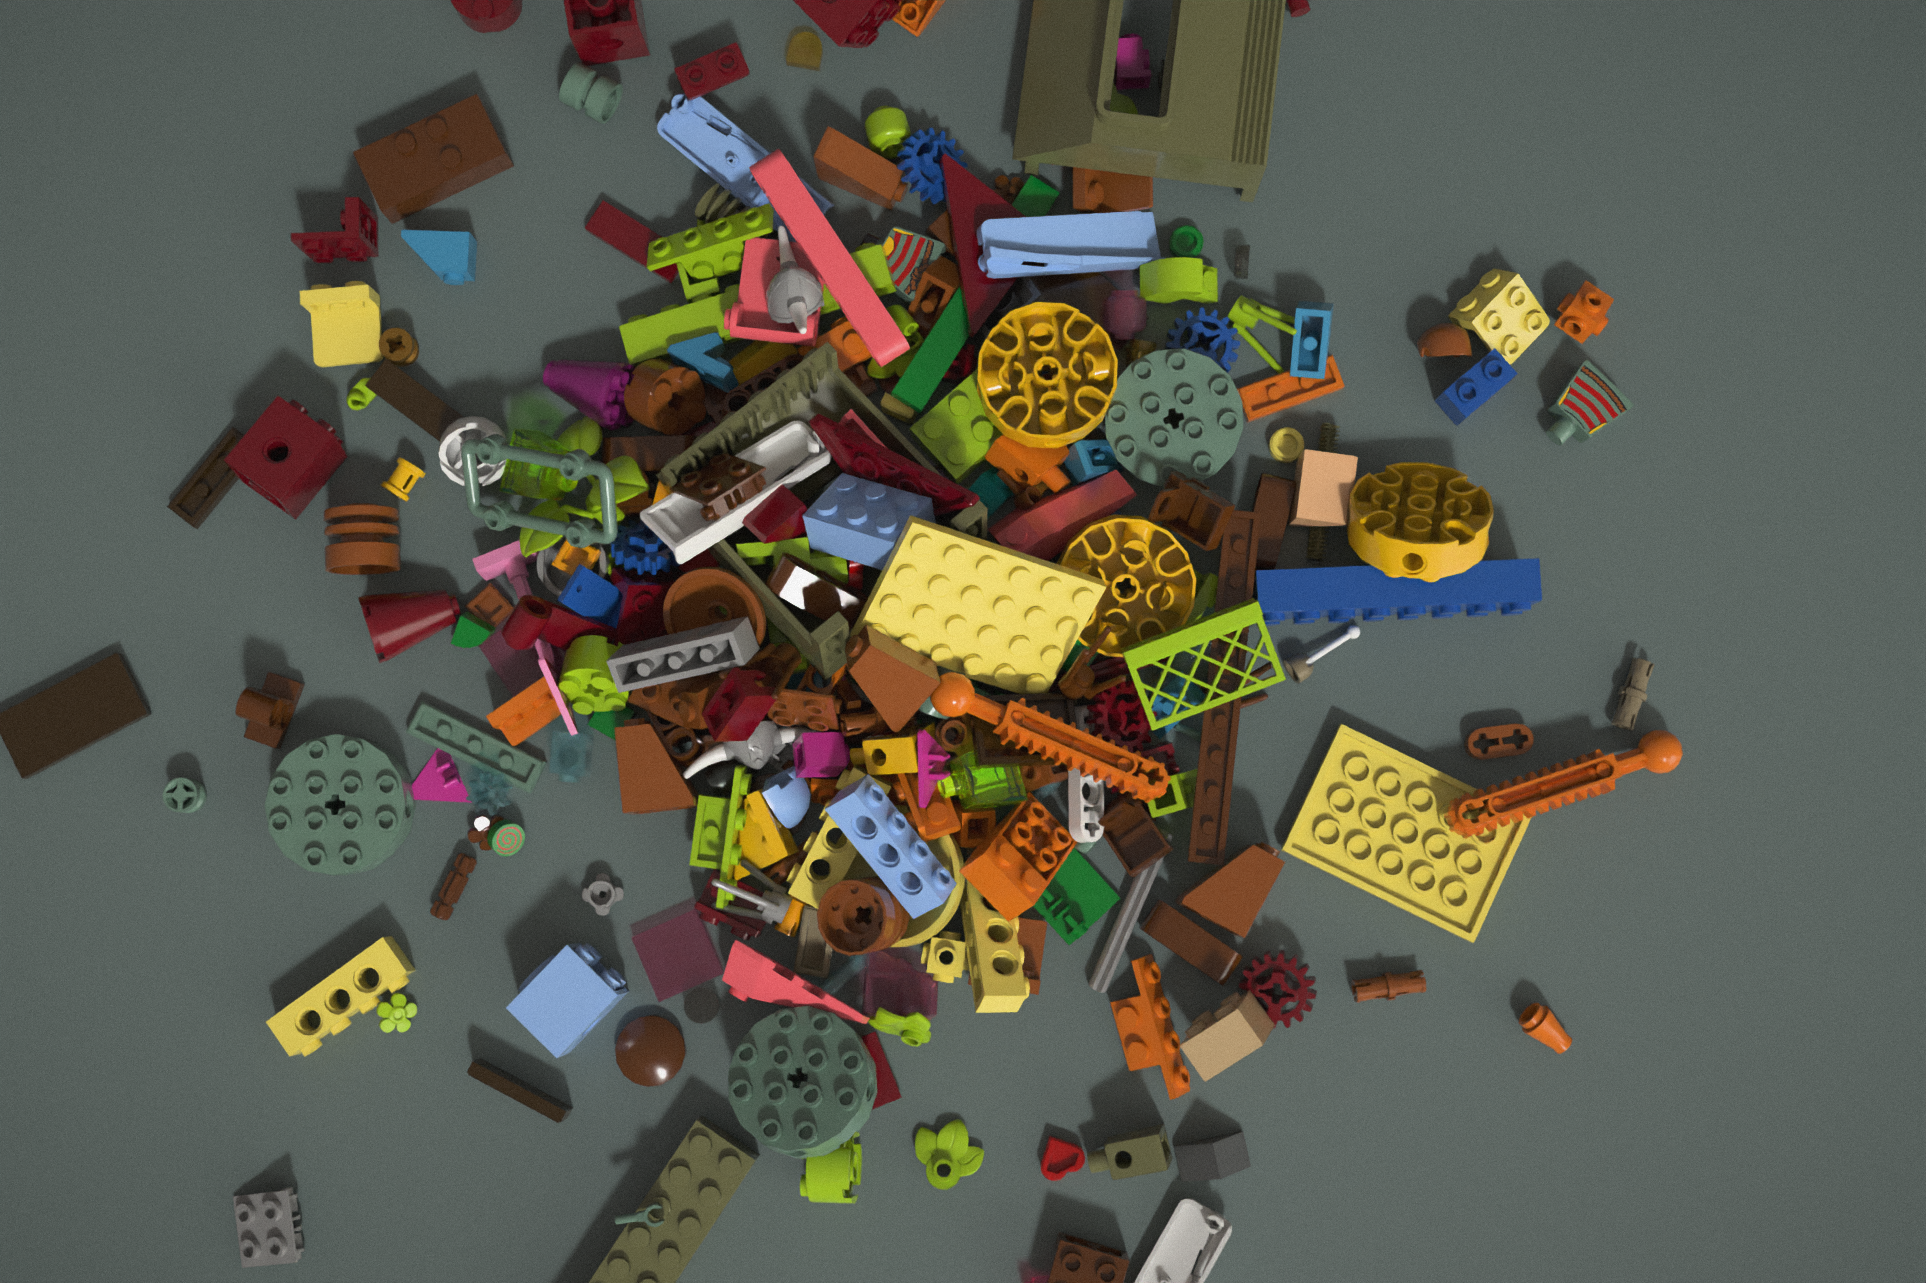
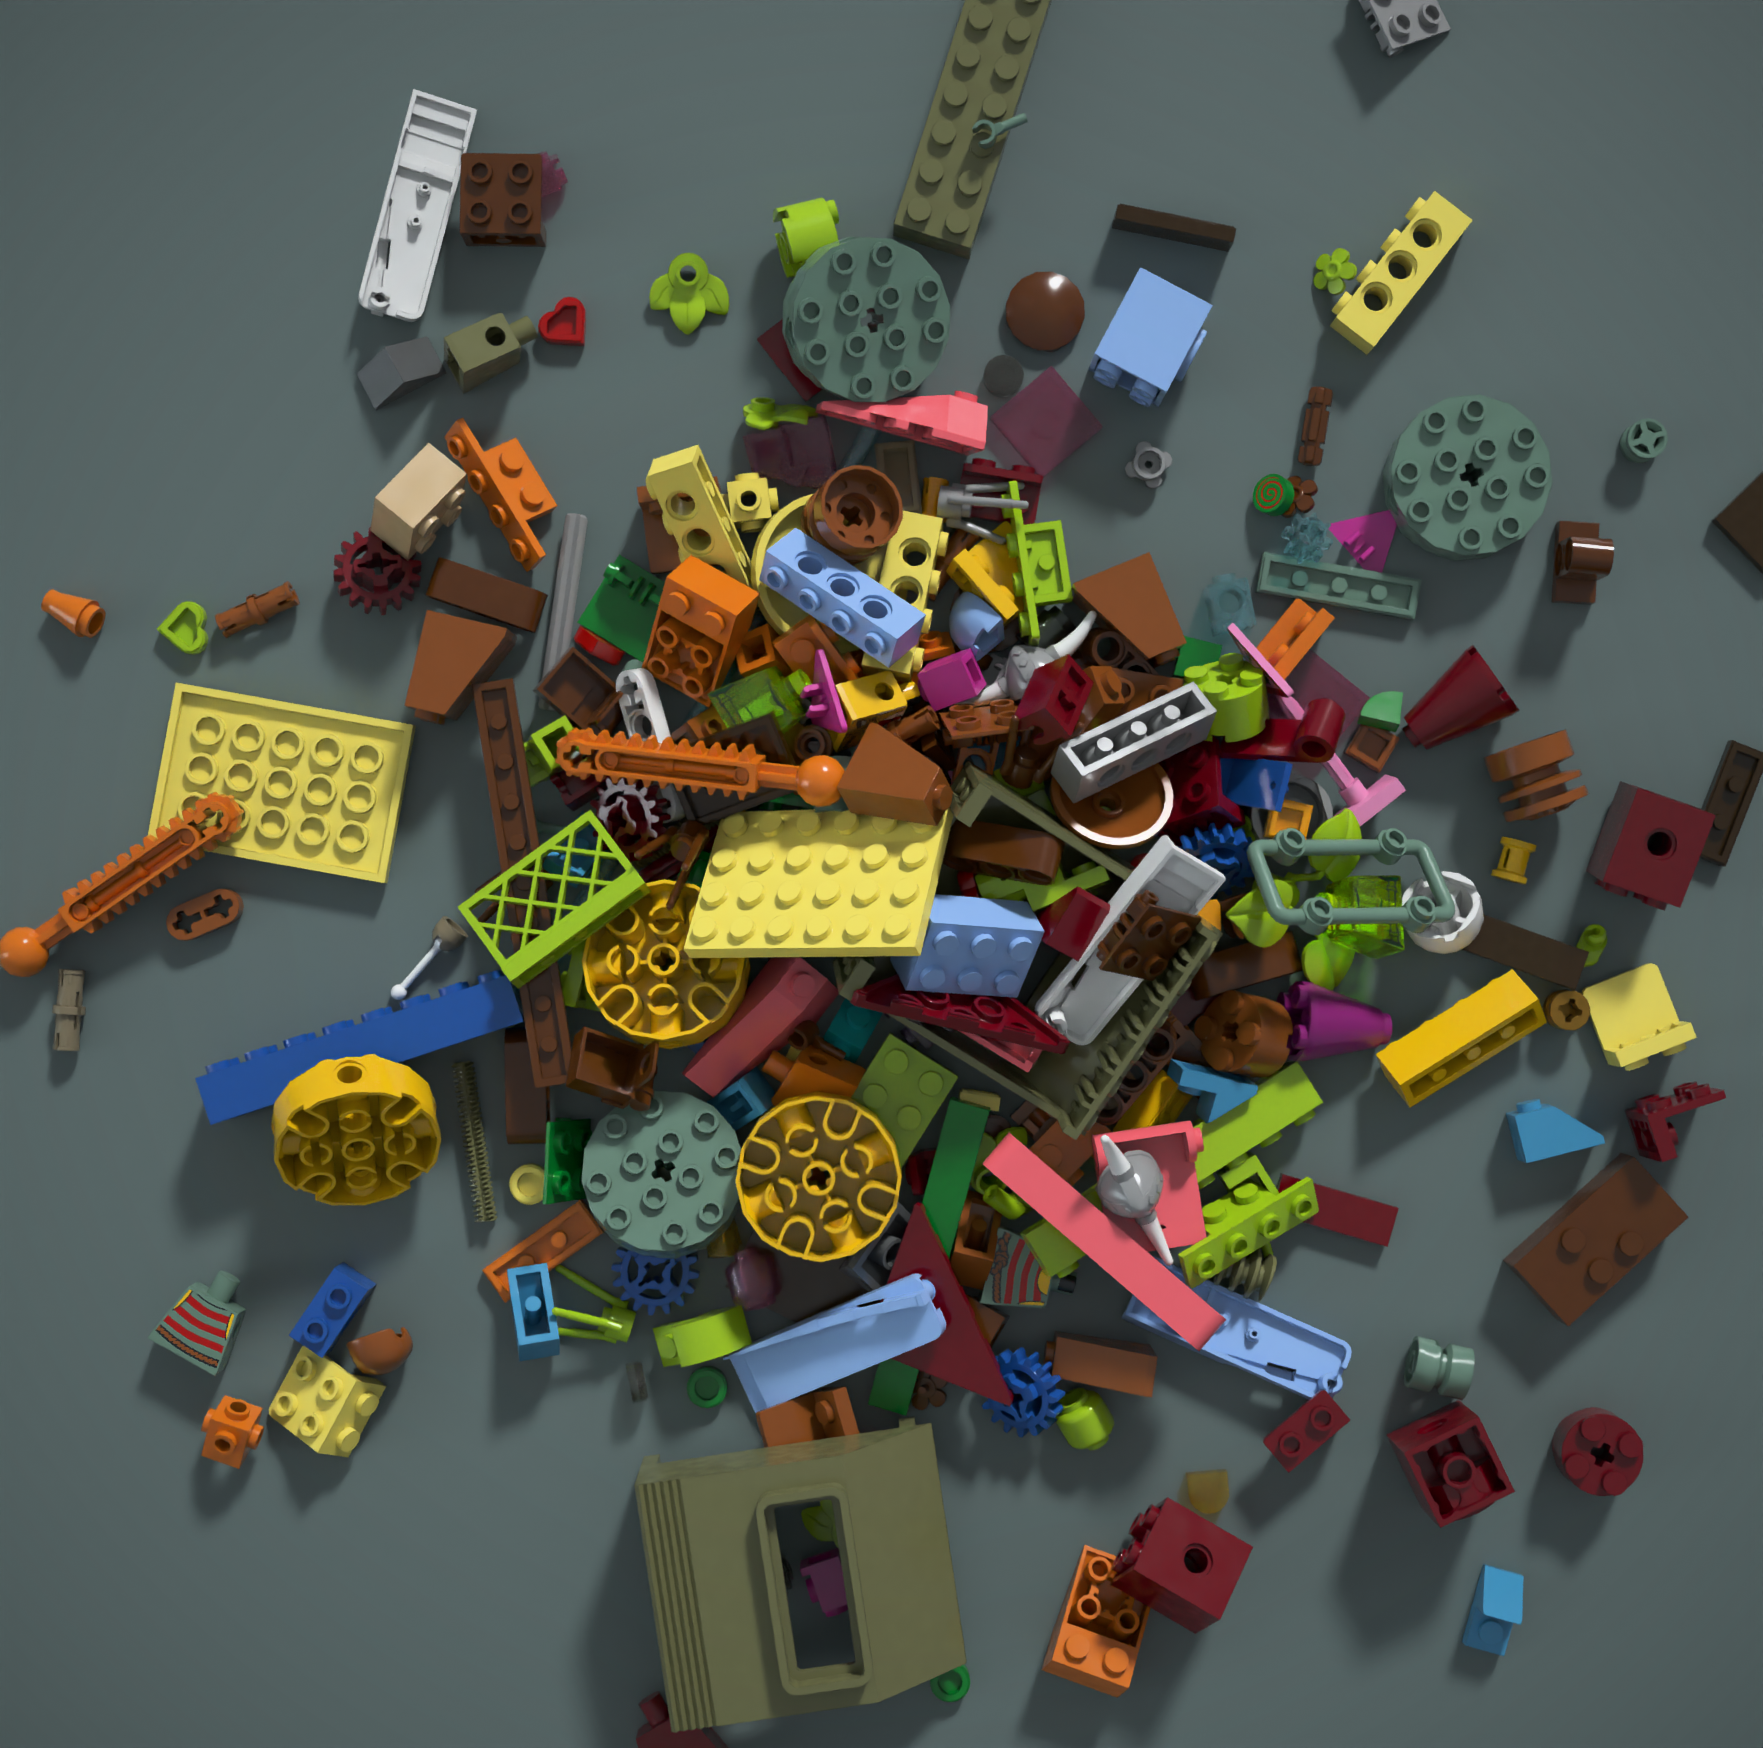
camera: 160 degrees right, 5 degrees up
(490, 347) = (1461, 1038): none -> yellow brick
(1108, 871) = (598, 646): none -> red tile
(1251, 454) = (564, 1159): none -> green hinge
(1322, 489) = (474, 1140): light nougat slope -> none
(1452, 988) = (186, 628): none -> lime tile

